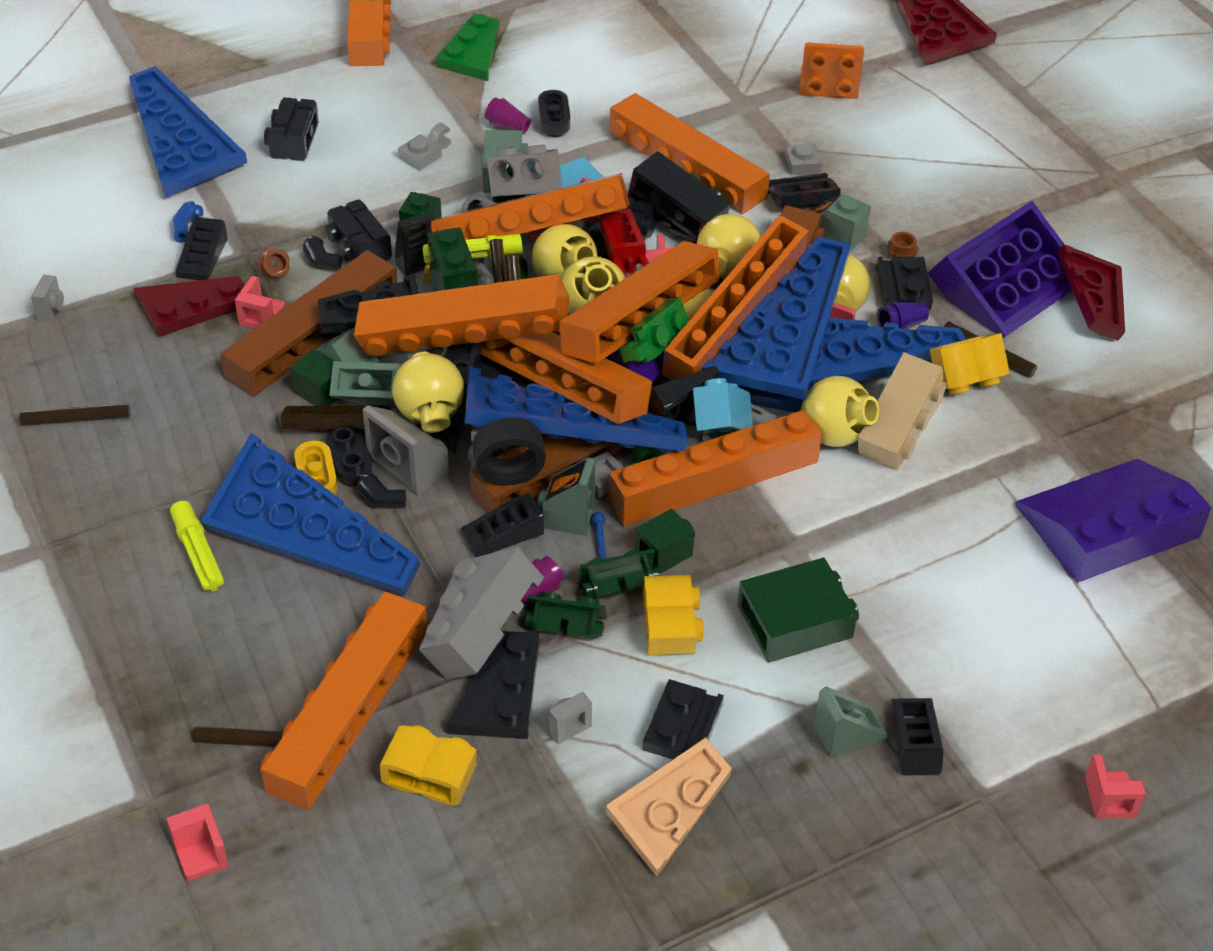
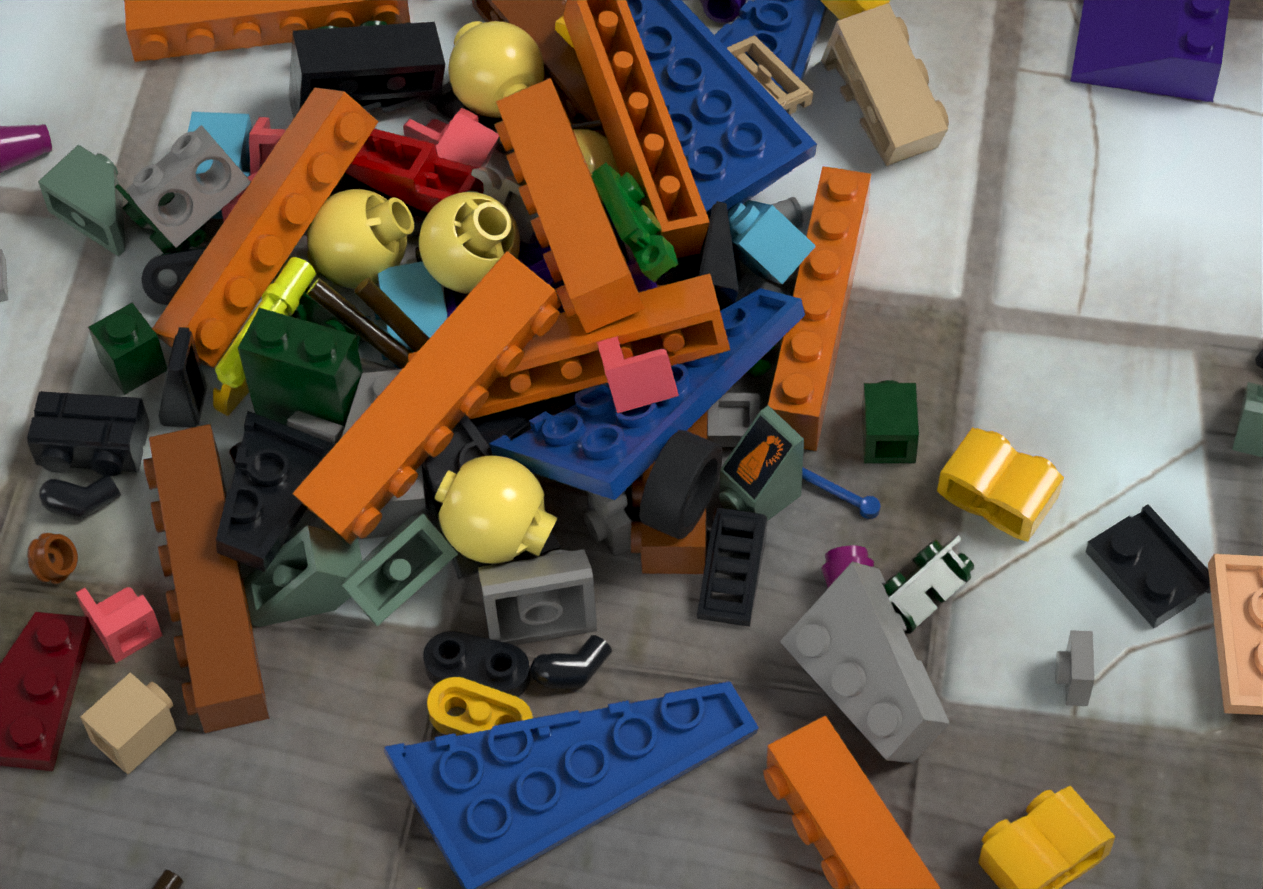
camera: 50 degrees left, 10 degrees up
(197, 339) = (130, 722): none -> tan brick
(312, 378) = (324, 624): dark green brick -> none
(325, 416) = (403, 643): dark brown tile -> none
(501, 692) = (991, 722): black wing -> none
(553, 388) = (637, 379): none -> coral panel
(554, 112) = (60, 96): black plate -> none
(601, 575) = (896, 516): dark green hinge -> none
(797, 609) = (1082, 362): dark green brick -> none
(834, 368) = (773, 67): none -> tan tile
(840, 409) = (848, 133): light yellow brick -> none

